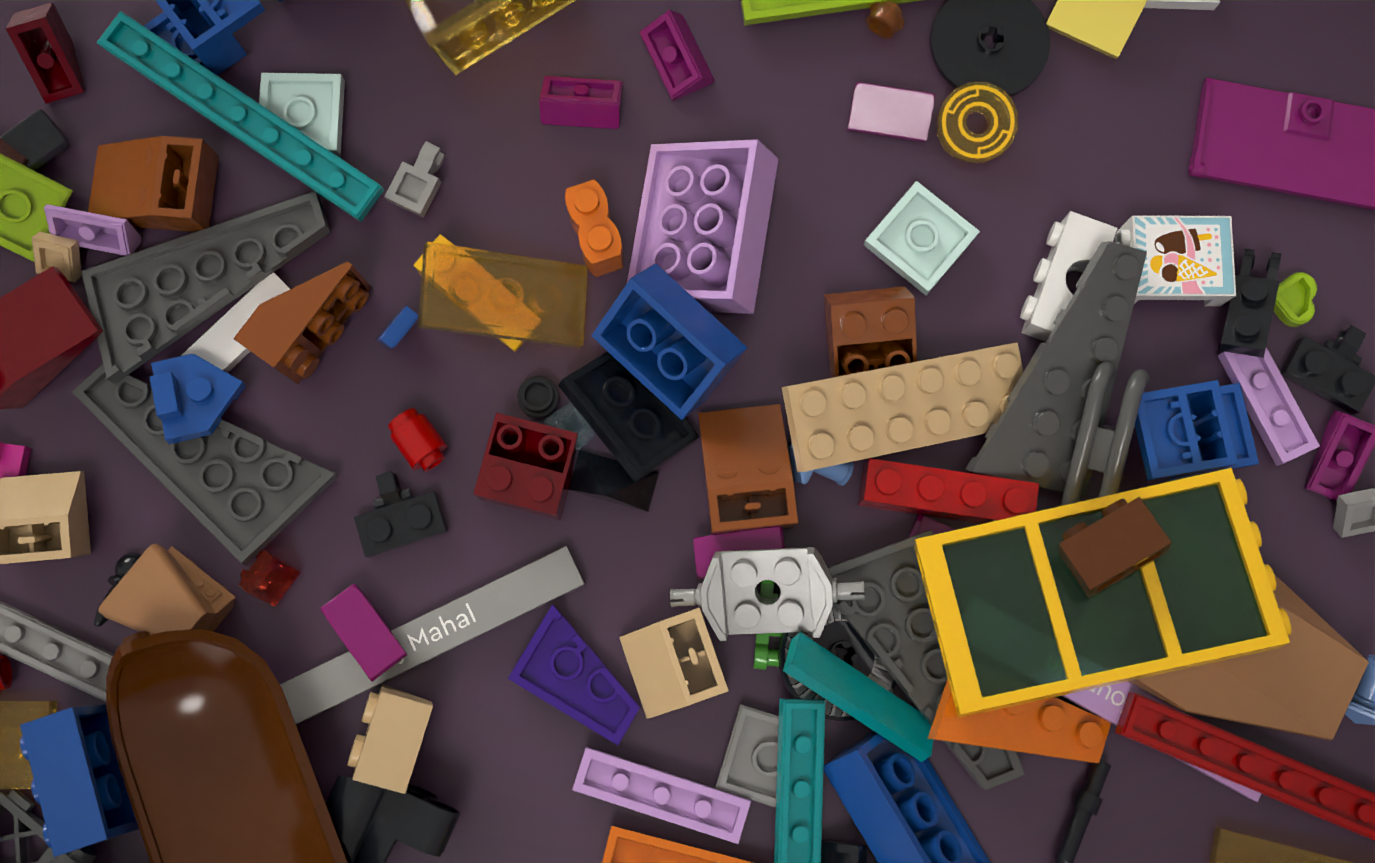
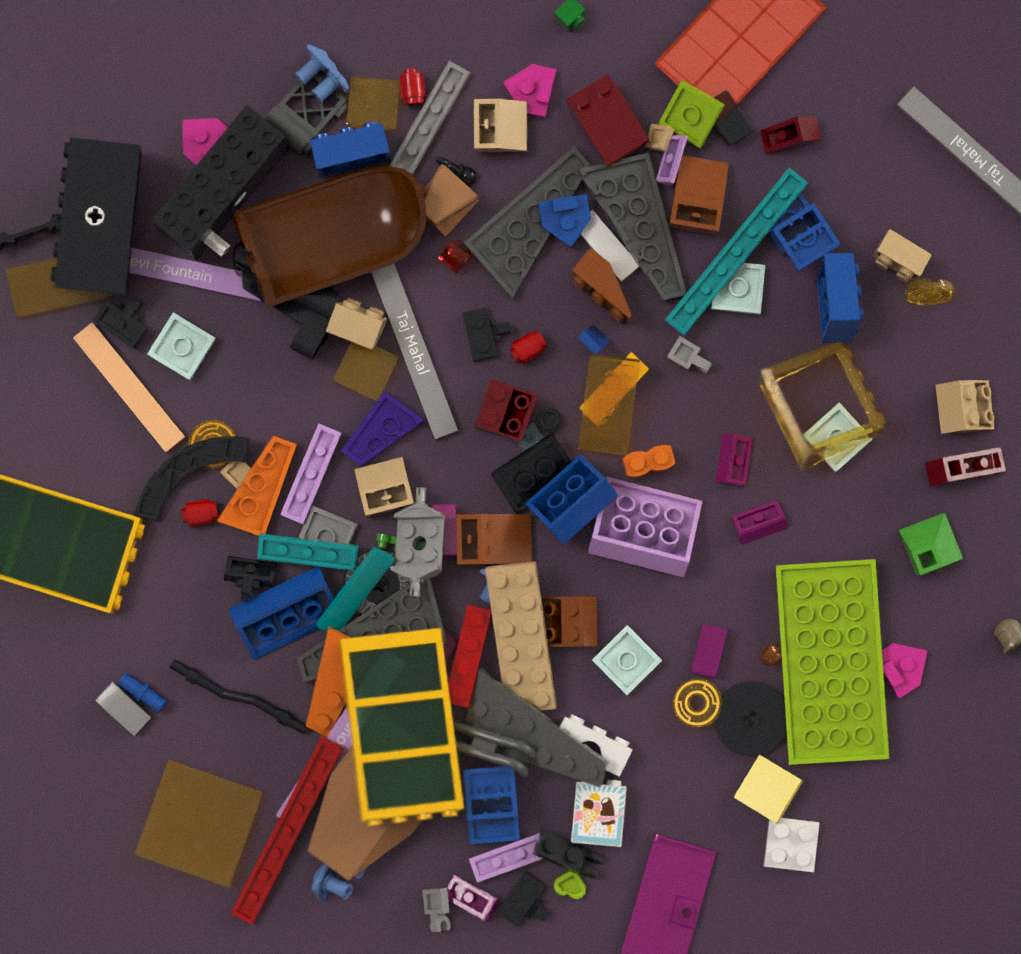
camera: 90 degrees right, 5 degrees up
(363, 631) = (418, 310): magenta slope -> none
(473, 714) = (366, 370): none -> clear yellow tile
(609, 481) = (495, 455): black slope -> none
(1113, 546) = (424, 732): reddish brown brick -> none

